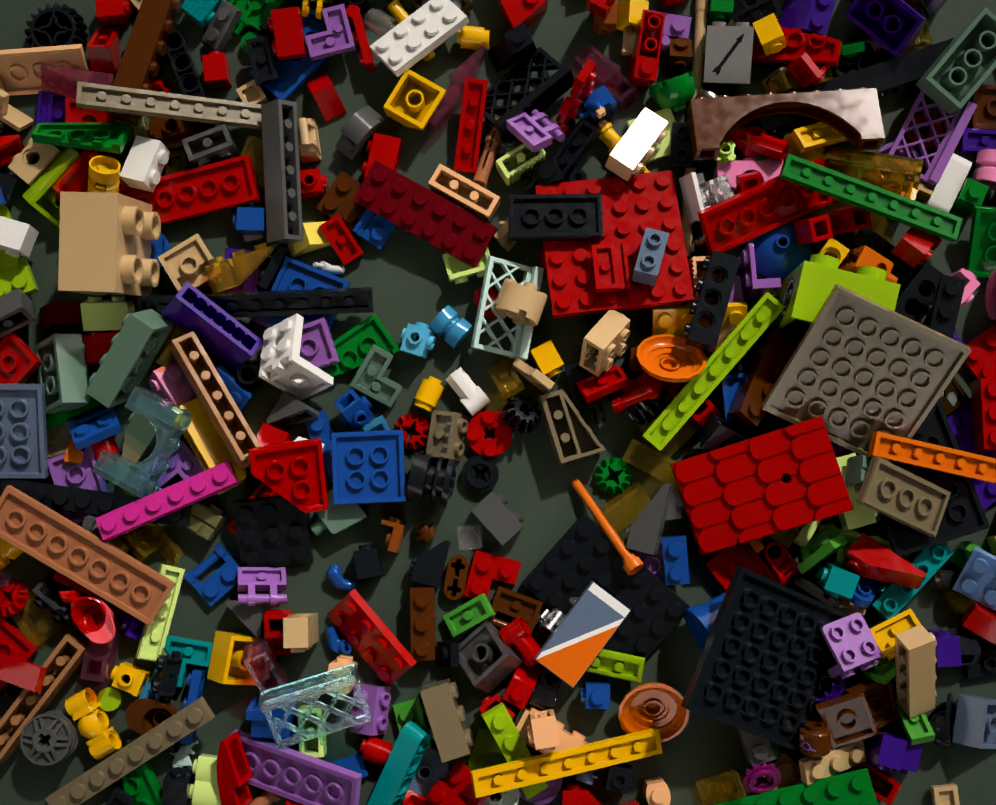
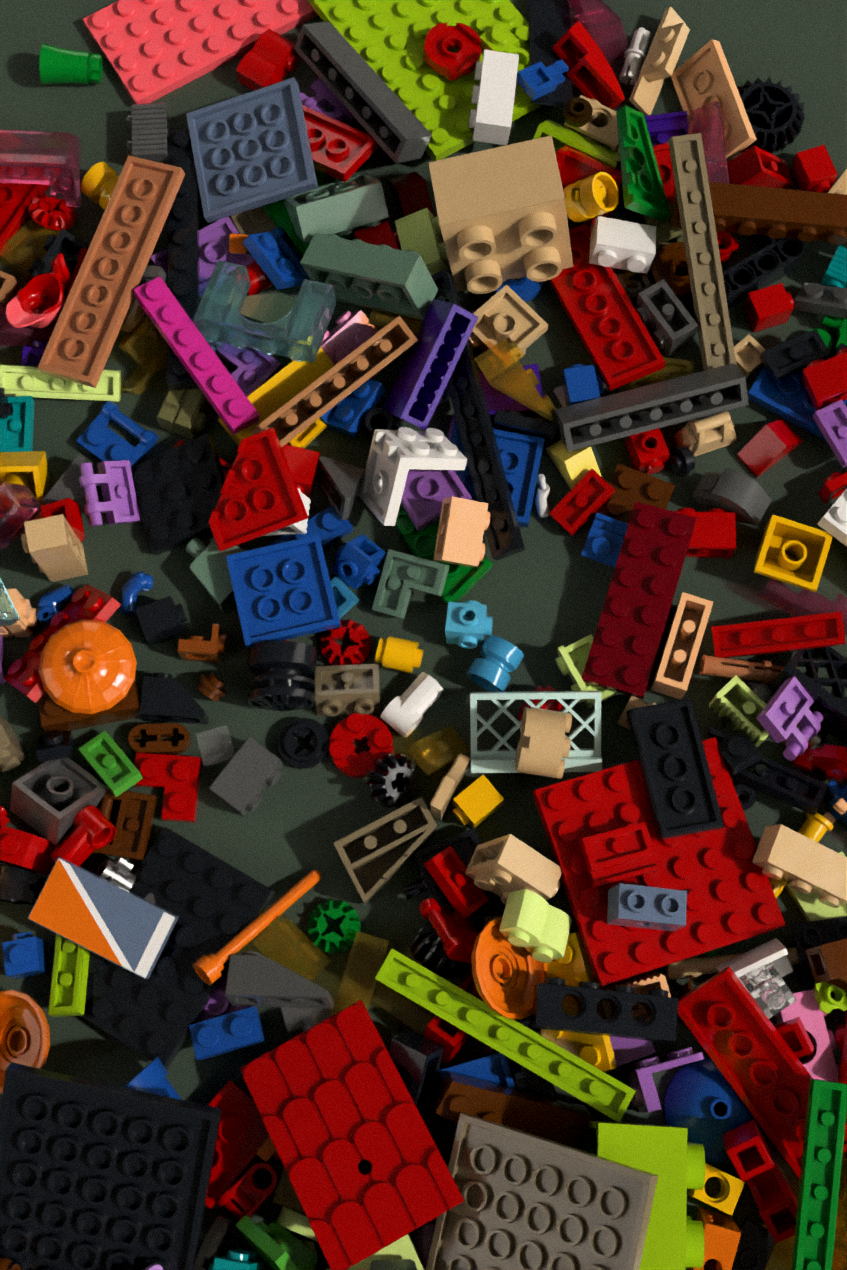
camera: 80 degrees right, 10 degrees down
(30, 173) = (574, 118): none -> dark brown plate
(324, 161) = (681, 461): none -> black plate
(350, 329) = (461, 532): none -> light nougat brick
(398, 619) = (87, 666): none -> orange hat
(646, 334) = (535, 925): none -> yellowish green brick

